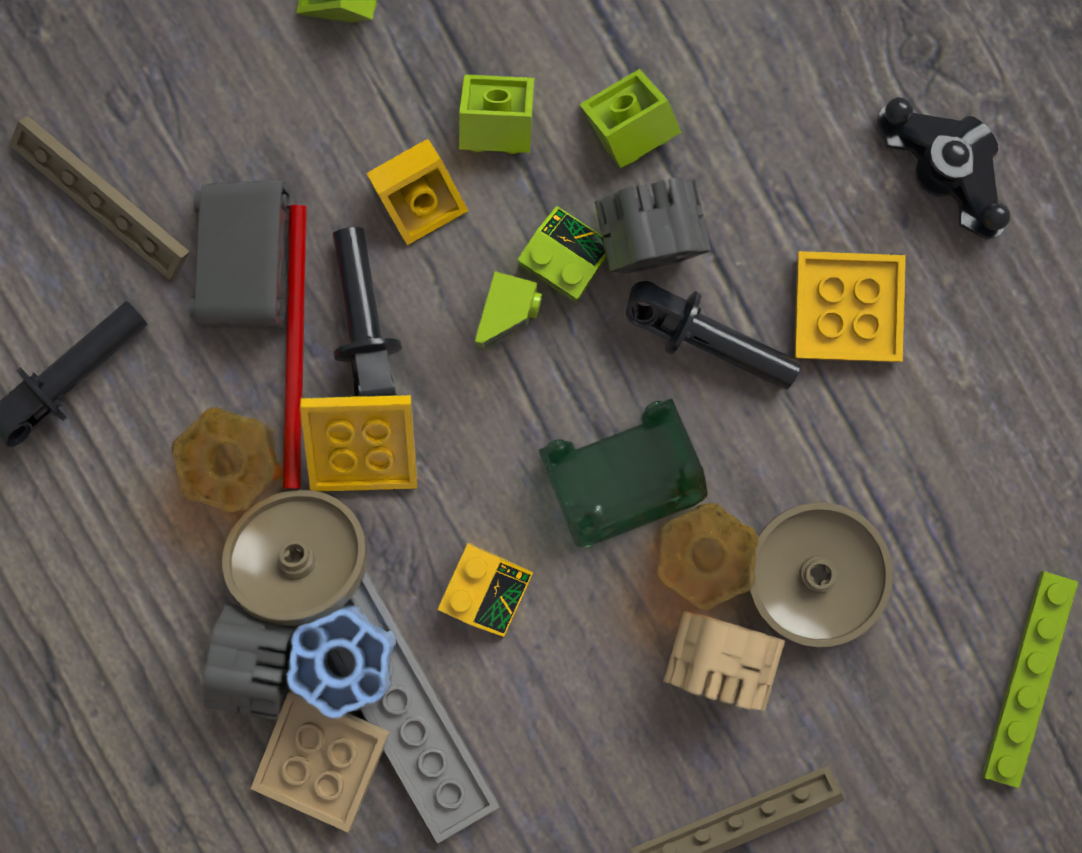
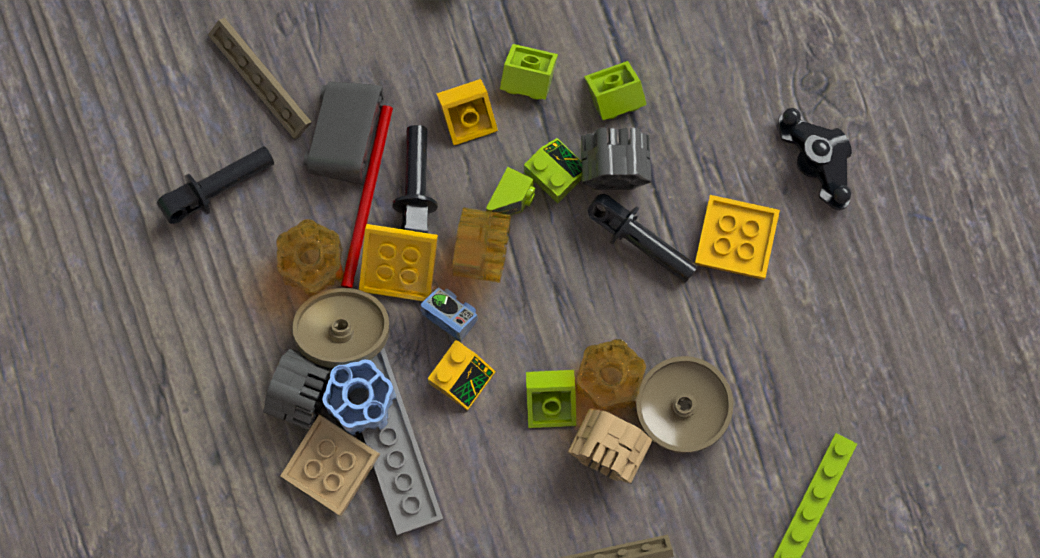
camera: 10 degrees right, 10 degrees down
(450, 502) = (449, 313): none -> slope
(477, 394) = (481, 245): none -> clear yellow piece
(622, 599) = (551, 398): none -> lime slope
(626, 476) = (567, 320): clear green windscreen -> none

